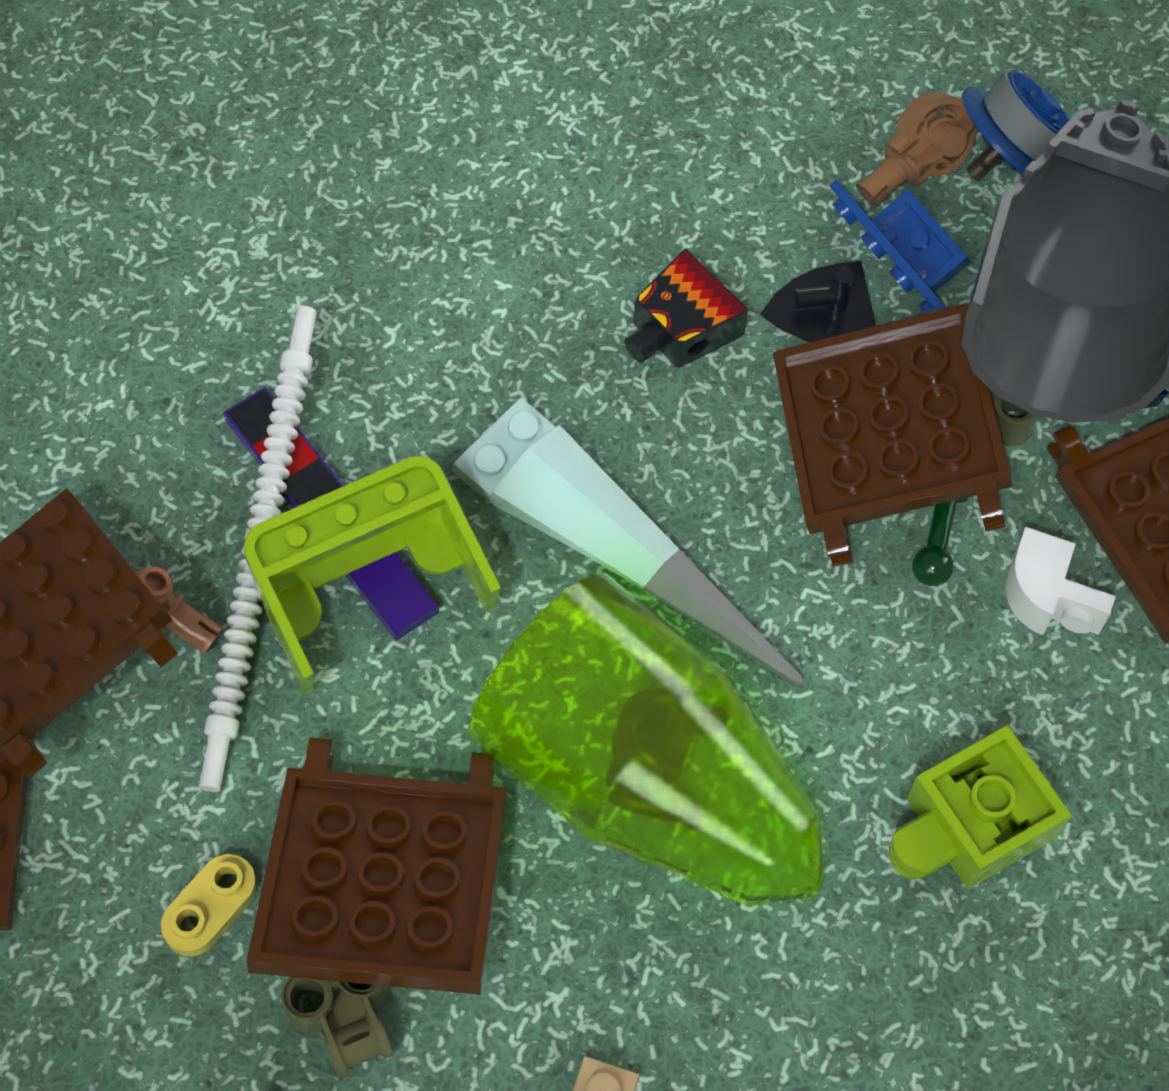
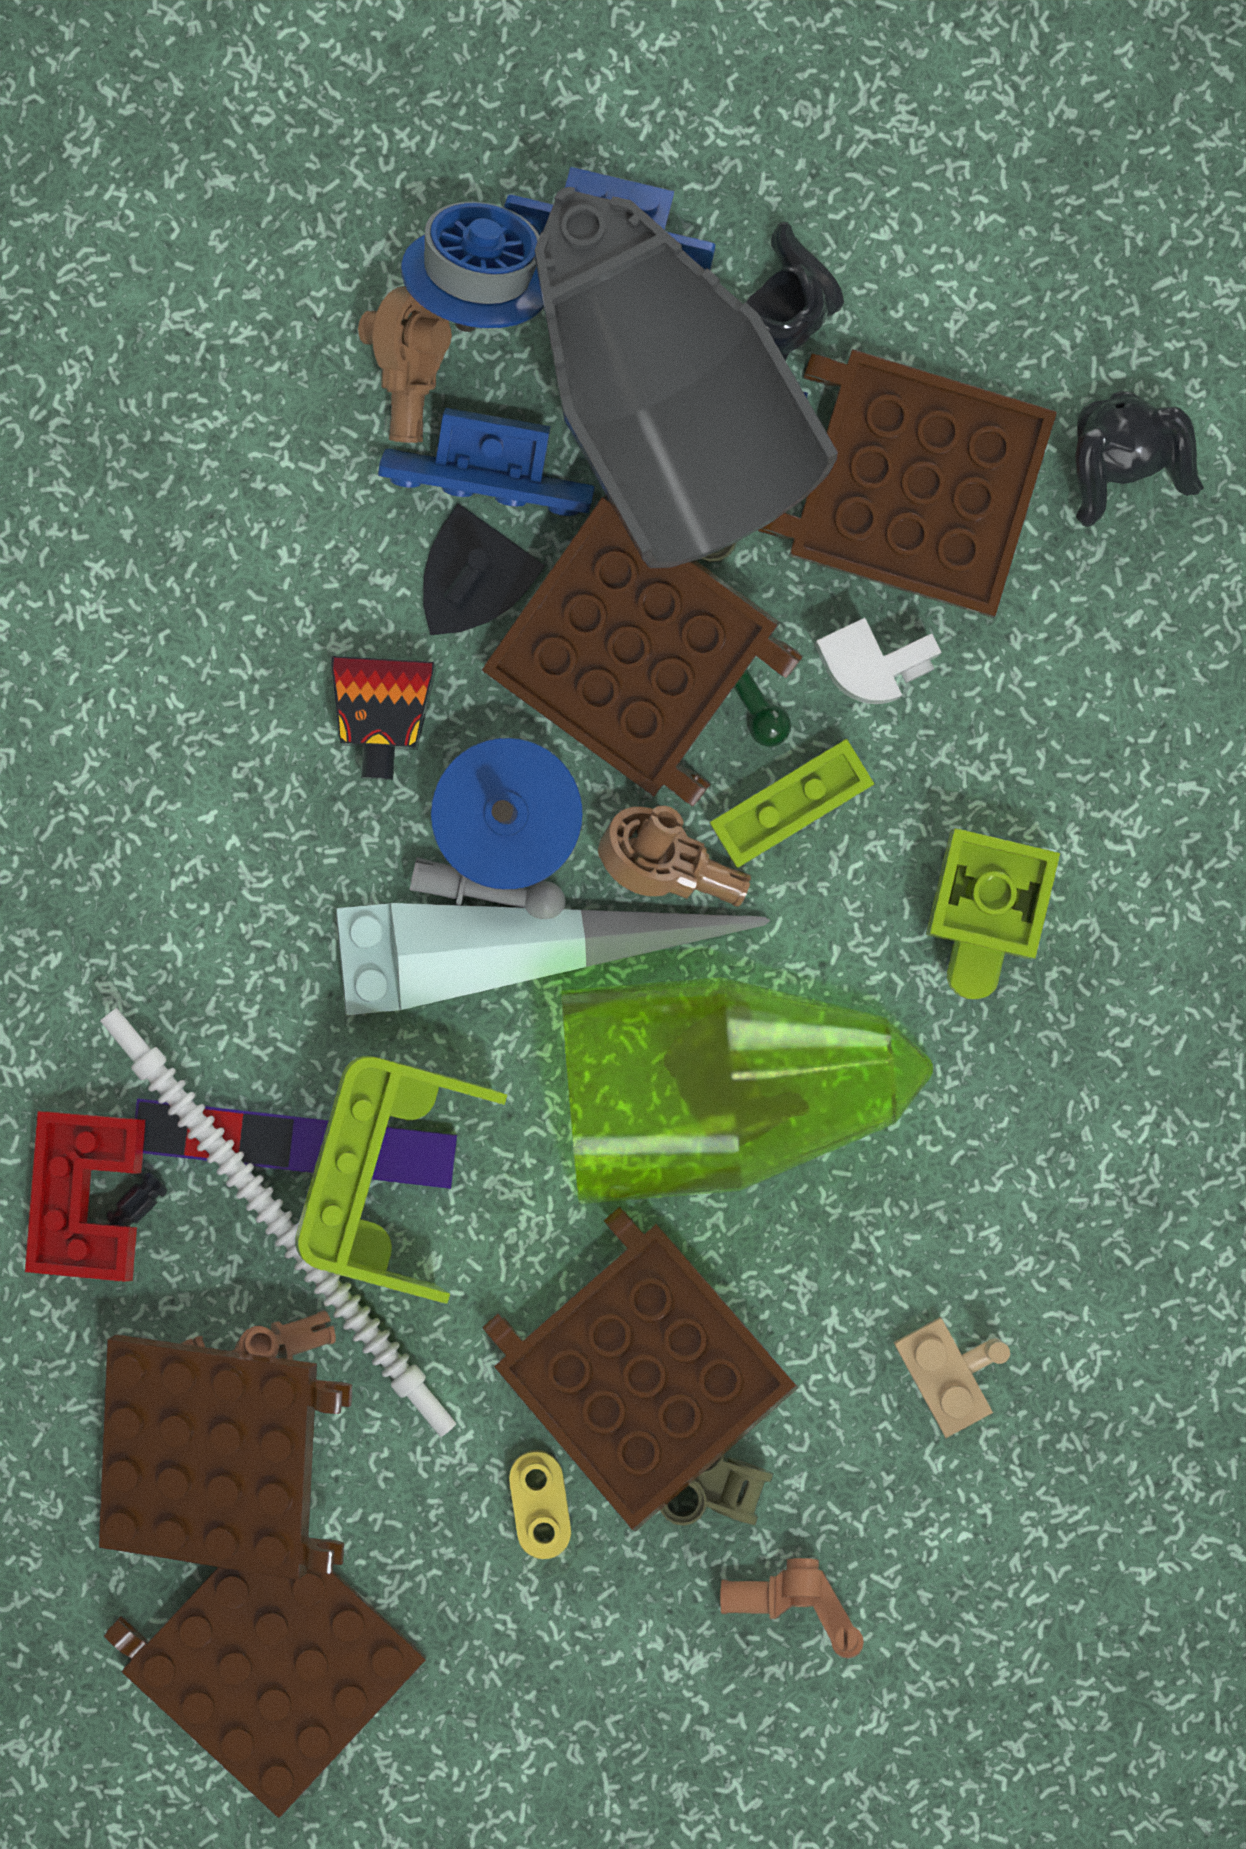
camera: 50 degrees left, 25 degrees up
(122, 415) = (58, 1227): none -> red plate
(189, 447) = (137, 1201): none -> black piece
(617, 460) = (540, 900): none -> light grey pin
(696, 434) = (506, 813): none -> blue piece
(774, 566) = (665, 858): none -> medium nougat pin
(898, 621) = (791, 803): none -> lime plate

